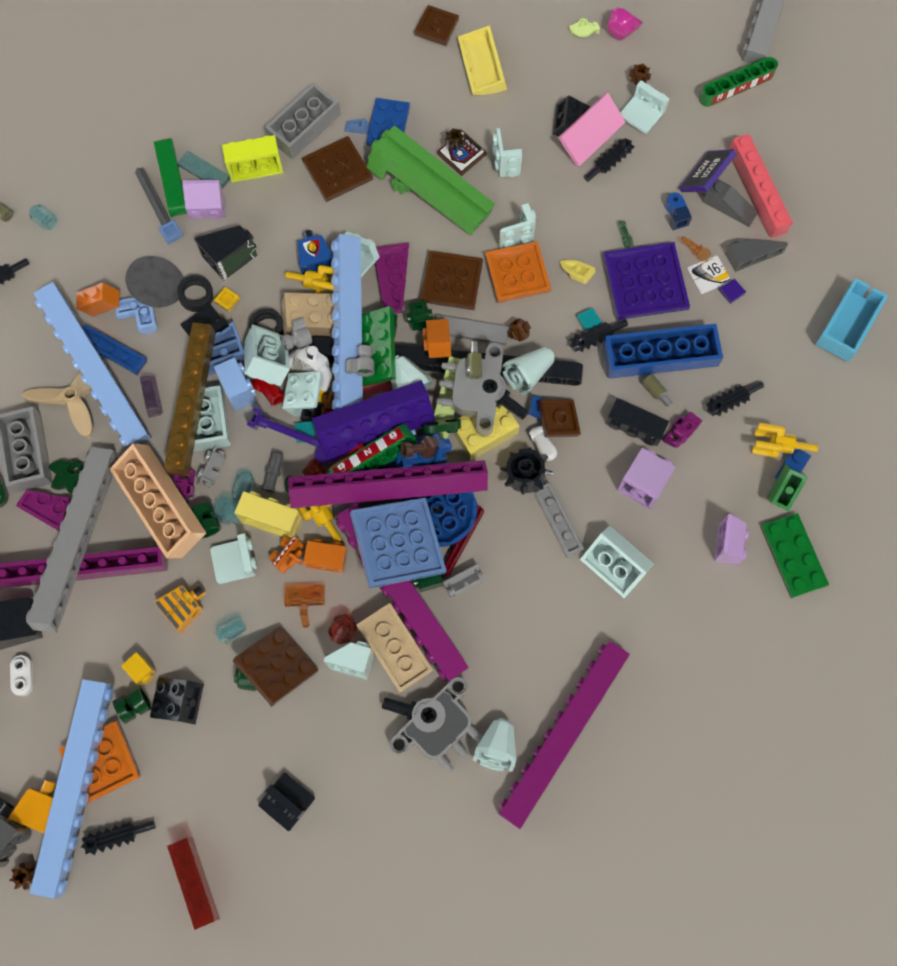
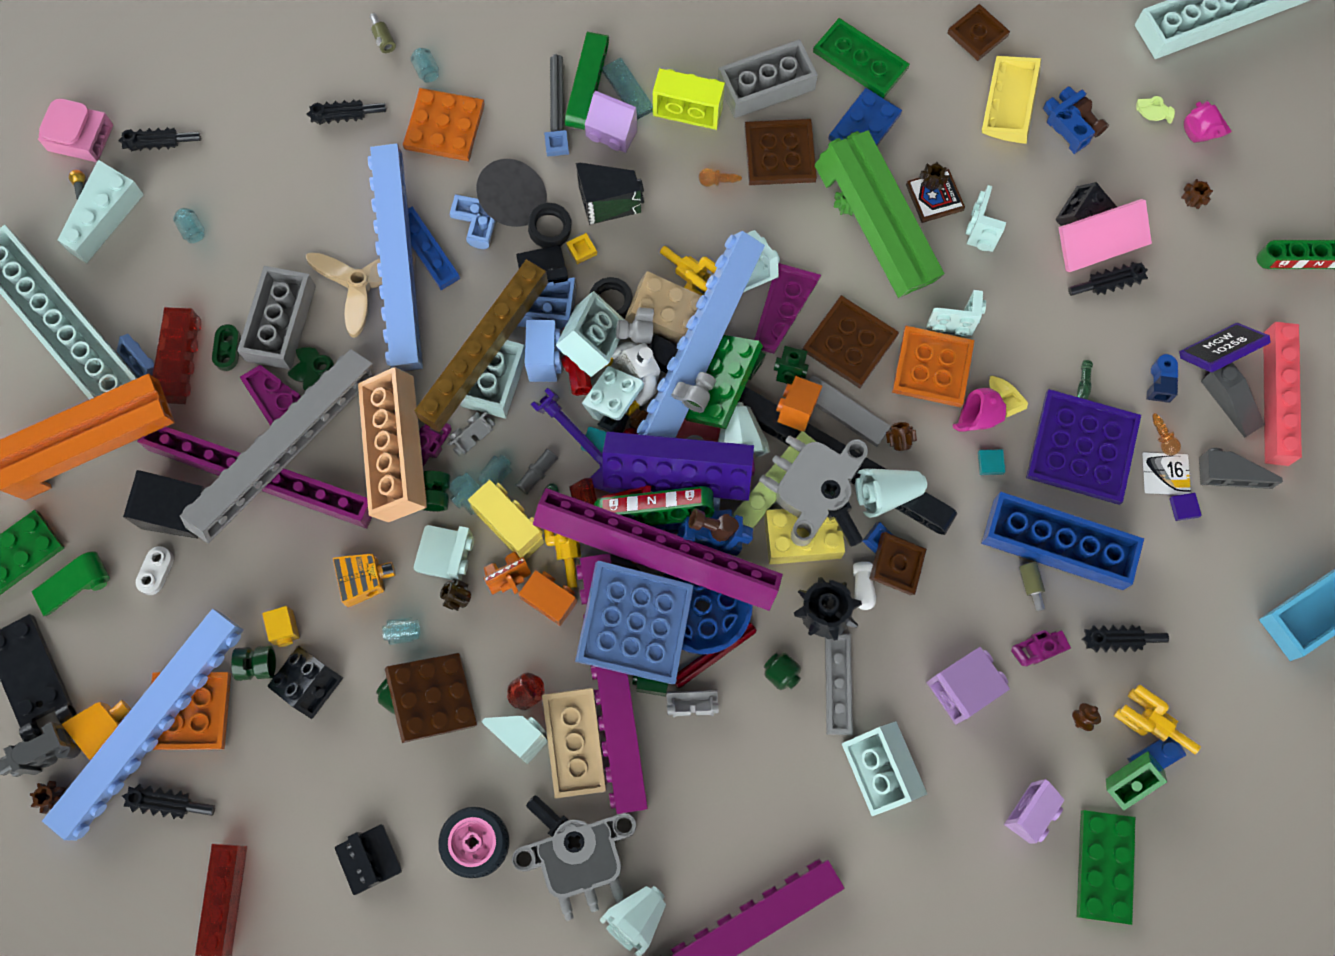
camera: 25 degrees right, 0 degrees up
(78, 254) = (443, 124): none -> orange plate
(97, 299) = (438, 185): orange brick -> none
(151, 396) = (444, 321): clear purple brick -> none
(257, 586) = (455, 594): none -> dark brown gear
(295, 208) = (708, 177): none -> clear orange bar
(304, 596) = (501, 633): clear orange plate -> none
(313, 252) = (704, 237): blue torso -> none
(343, 749) = (464, 827): none -> wheel
(358, 126) = (828, 112): medium blue piece -> none
(362, 77) = (861, 58): none -> green plate
(449, 425) = (760, 512): dark green plate -> none
(474, 362) = (825, 453): olive piece -> none
(515, 529) = (782, 671): none -> dark green head
(532, 58) = (1073, 118): none -> blue hips
(565, 287) = (981, 411): none -> dark pink helmet
(596, 335) = (990, 484): black piece -> none
(637, 422) = (989, 613): black brick -> none
(645, 107) = (1183, 236): light aqua bracket -> none
(734, 461) = (1086, 717): none -> reddish brown wheel

